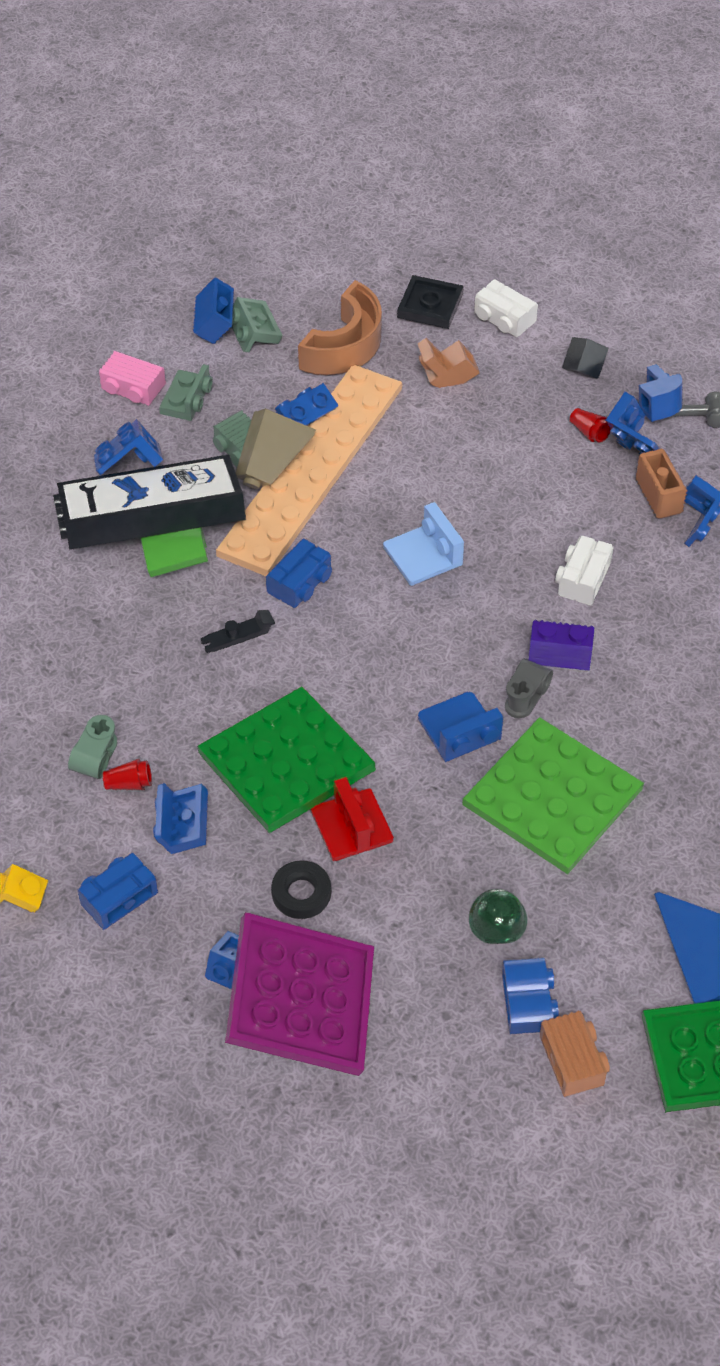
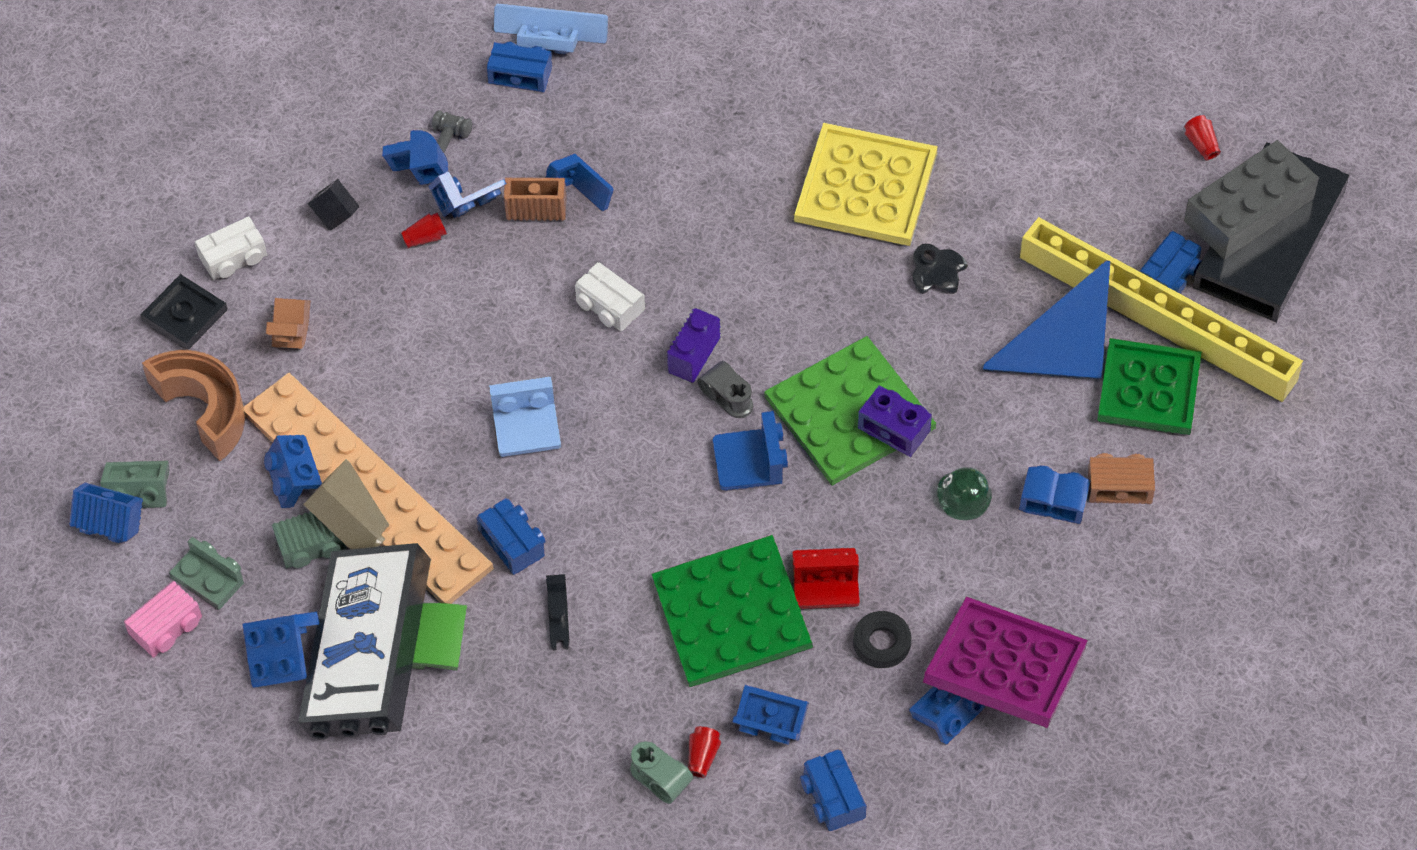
camera: 70 degrees left, 5 degrees up
(542, 822) = (895, 420): none -> dark purple brick

